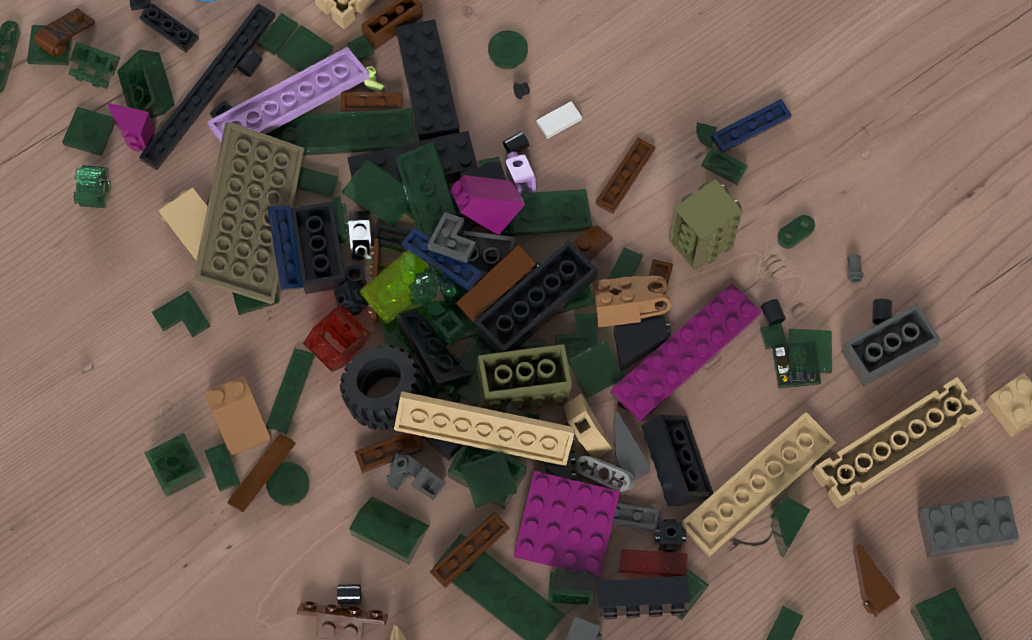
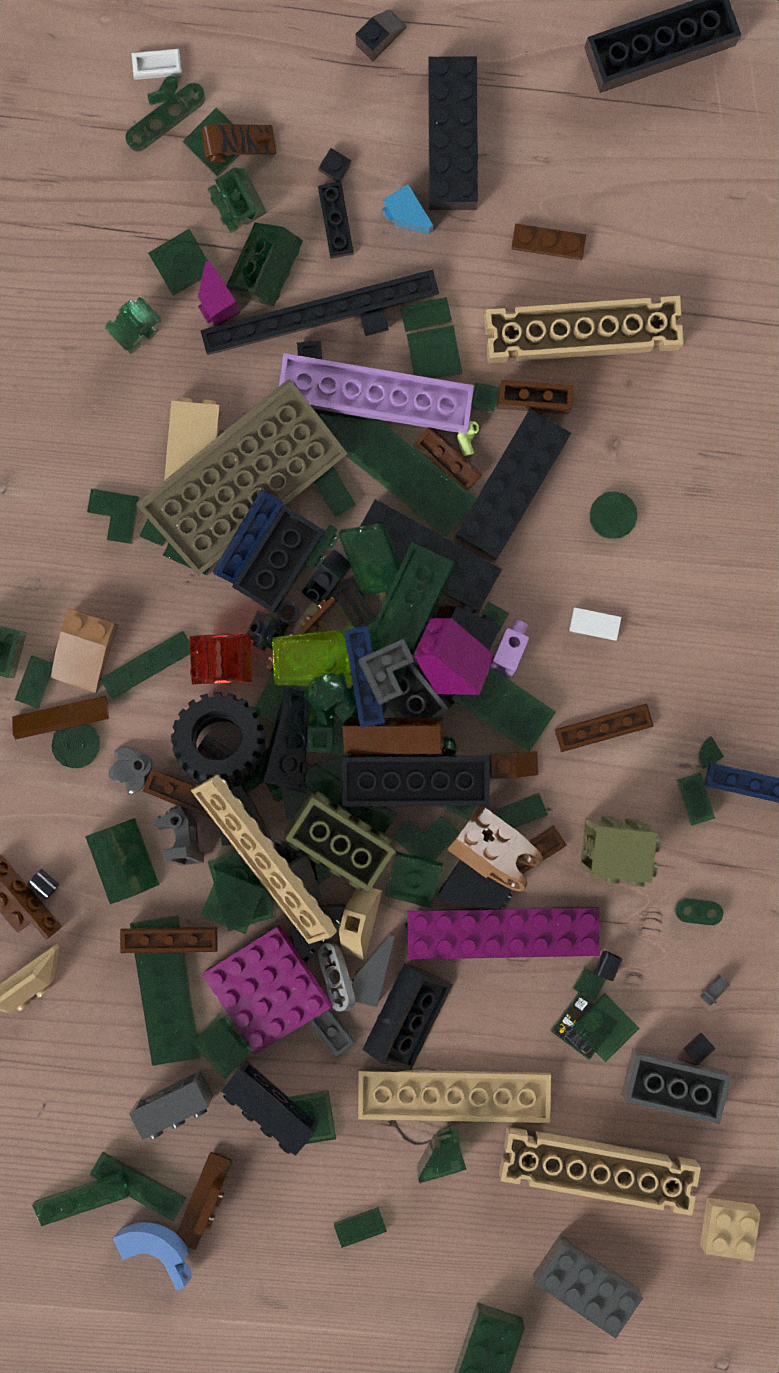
camera: 40 degrees right, 20 degrees up
(219, 302) = (152, 534): none -> clear green tile
(338, 468) = (127, 770): none -> dark grey plate
(516, 143) = (536, 613): black beam -> none
(521, 89) = (587, 565): black piece -> none
(653, 563) = (307, 1082): clear red tile -> none
(667, 542) = (341, 1066): black brick -> none
(874, 587) = (464, 1261): reddish brown slope -> none

